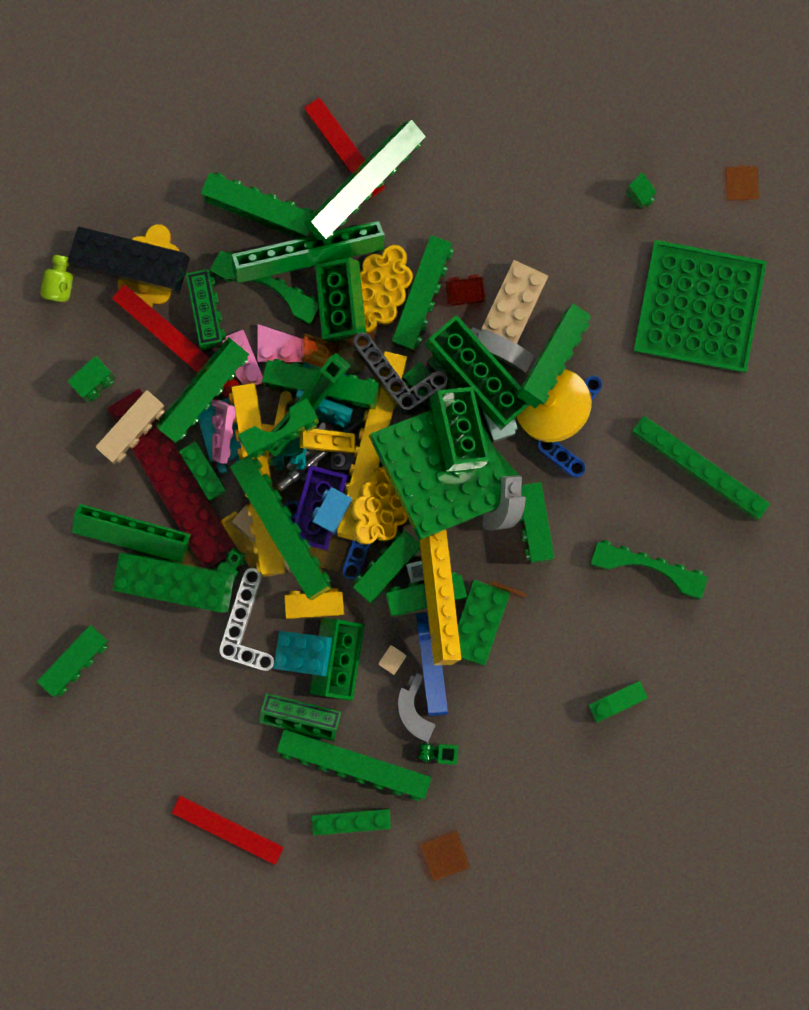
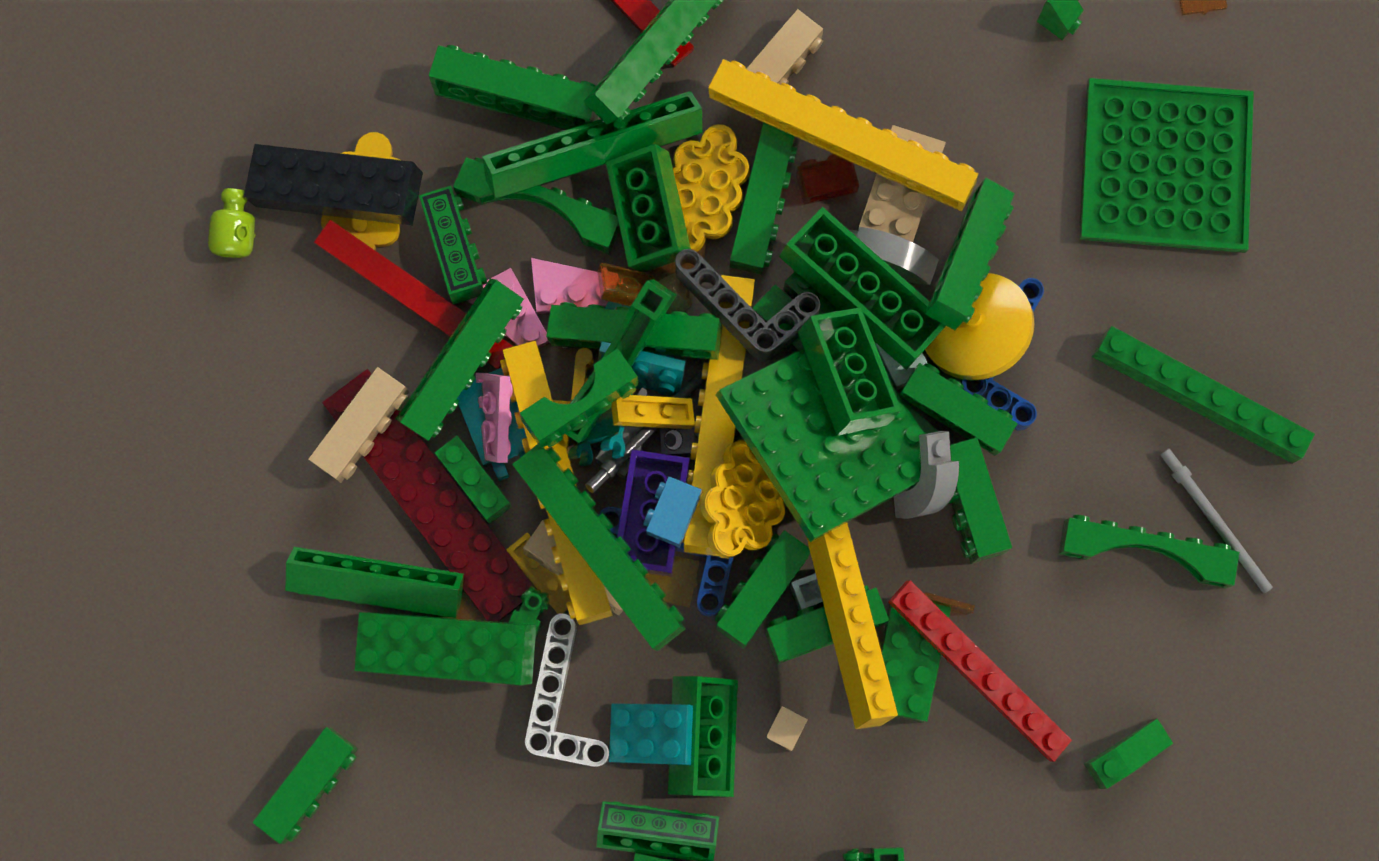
camera: 10 degrees left, 5 degrees down
(92, 379) = (295, 362): green brick -> none
(325, 605) = (643, 663): yellow brick -> none
(413, 722) = (820, 809): light grey arch -> none
(432, 673) = (850, 742): blue beam -> none
(440, 205) = (788, 48): none -> tan brick
(477, 264) = (842, 134): none -> yellow brick
(524, 636) = (979, 670): none -> red plate
(531, 460) = (957, 408): none -> green brick
(679, 521) = (1183, 476): none -> light grey bar

